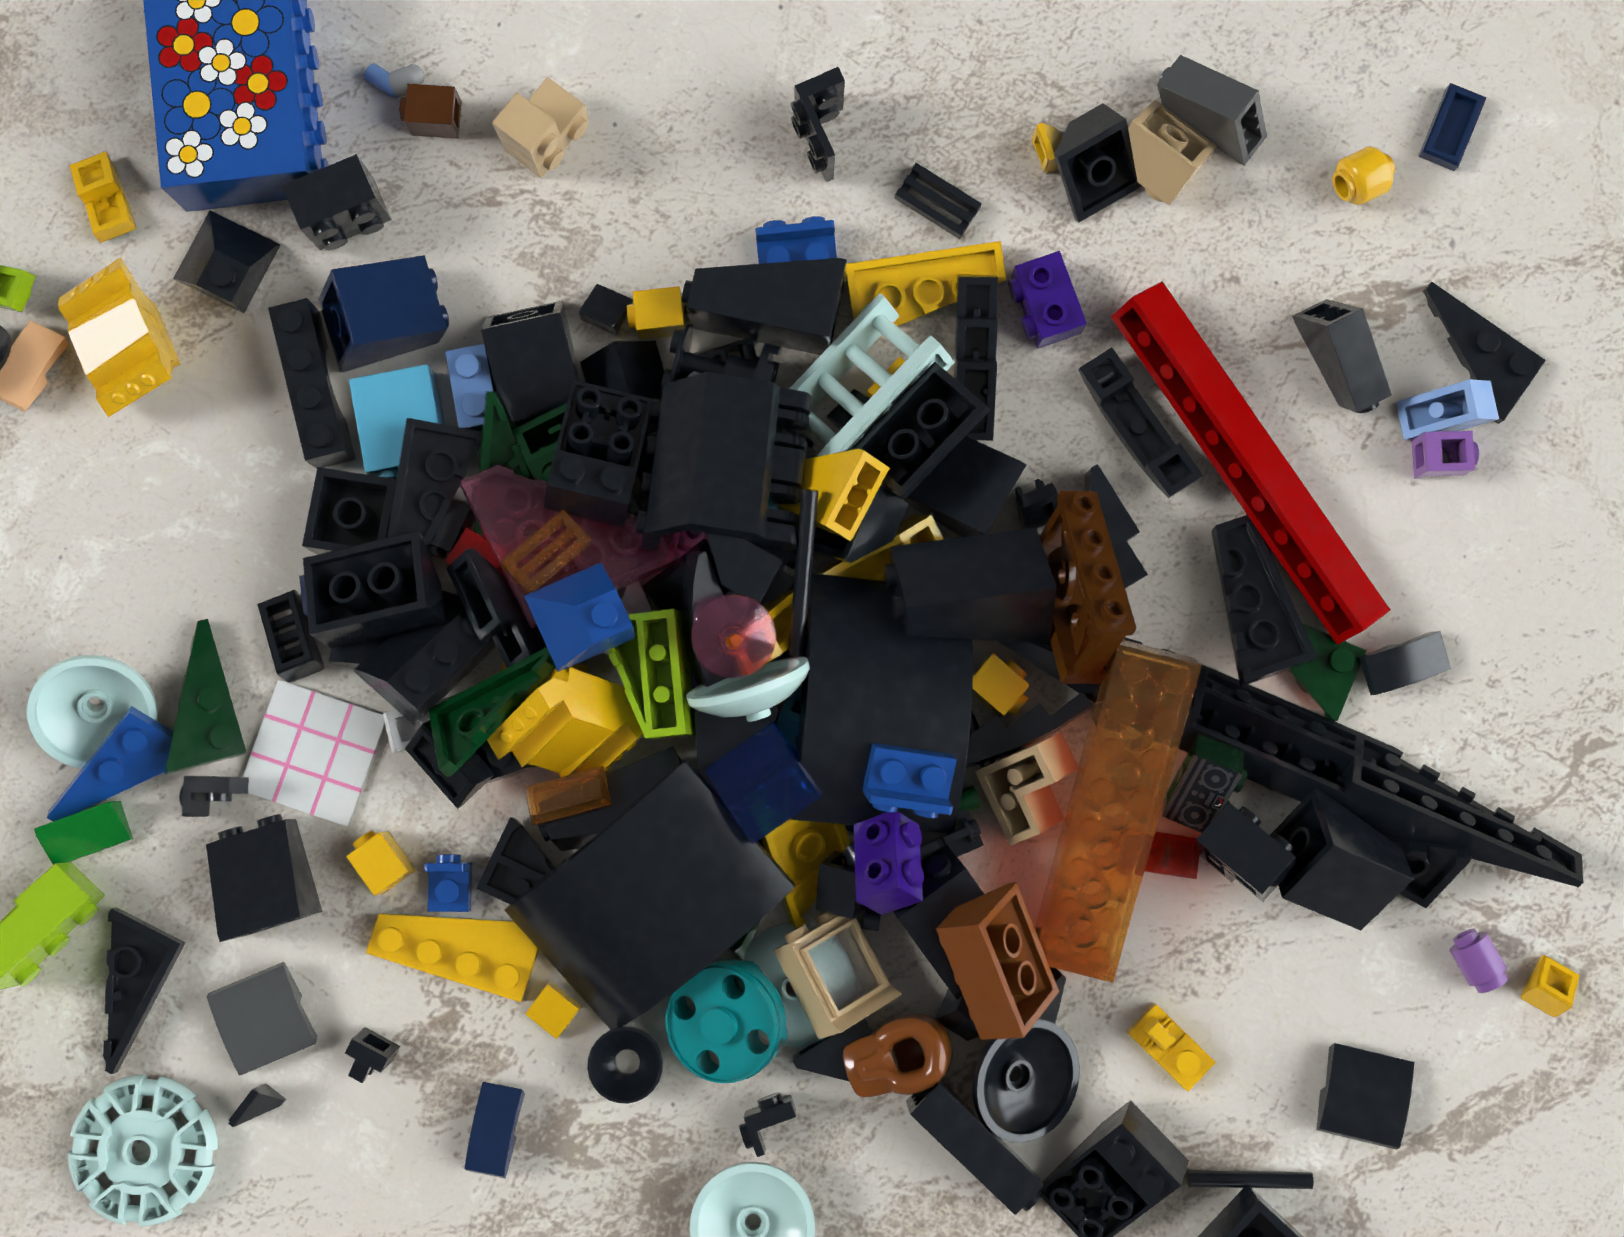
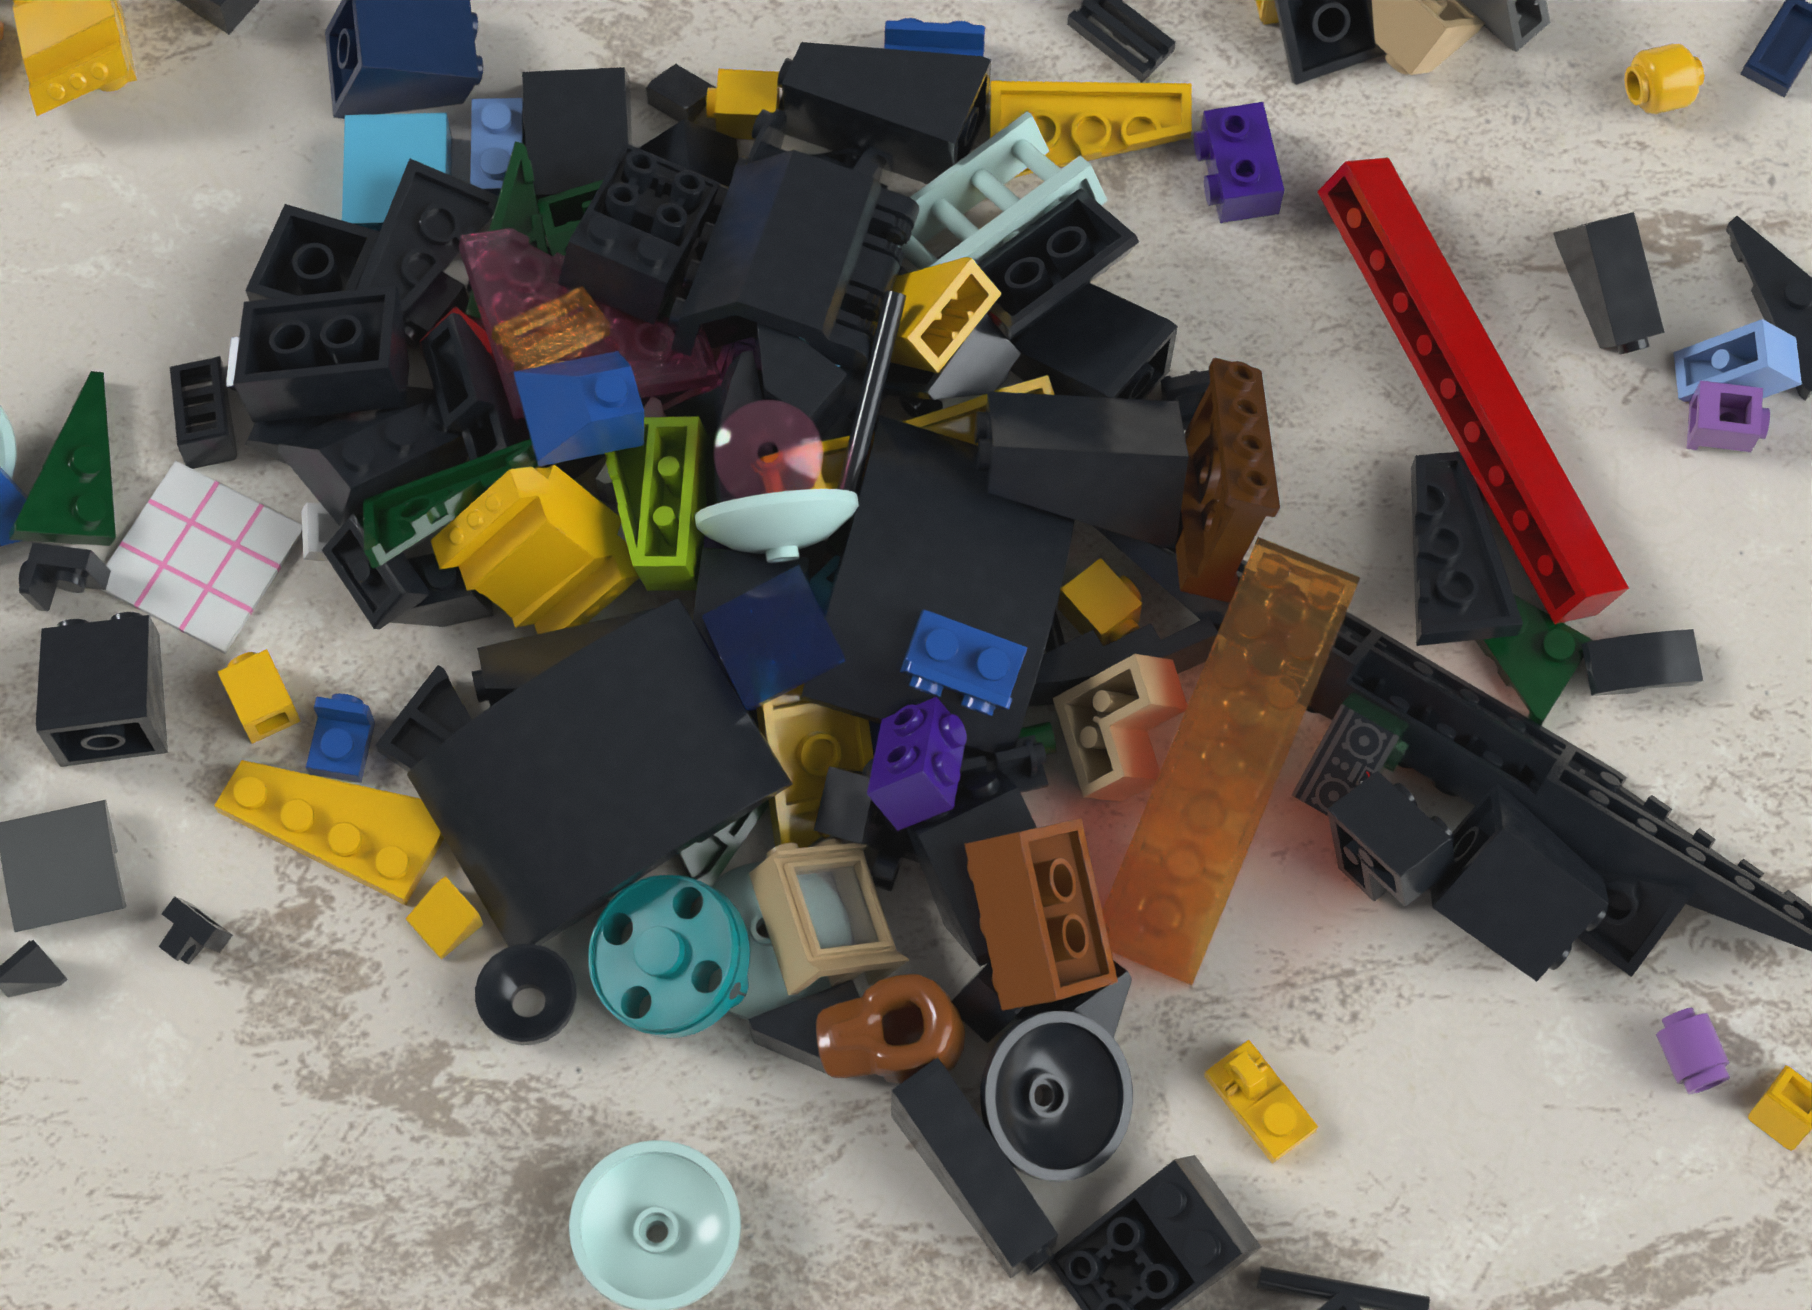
camera: 10 degrees right, 15 degrees down
(315, 408) = (294, 114): black arch -> none
(493, 1130) = (333, 1053): dark blue slope -> none
(567, 795) = (517, 639): clear orange tile -> none
(771, 1111) = (706, 1090): black bracket -> none
(977, 344) = (1142, 202): black slope -> none
(1119, 525) = (1290, 446): black slope -> none
(1137, 425) = (1330, 323): black slope -> none
(1173, 855) = (1293, 851): clear red slope -> none
(1365, 1096) = (1516, 1205): black slope -> none

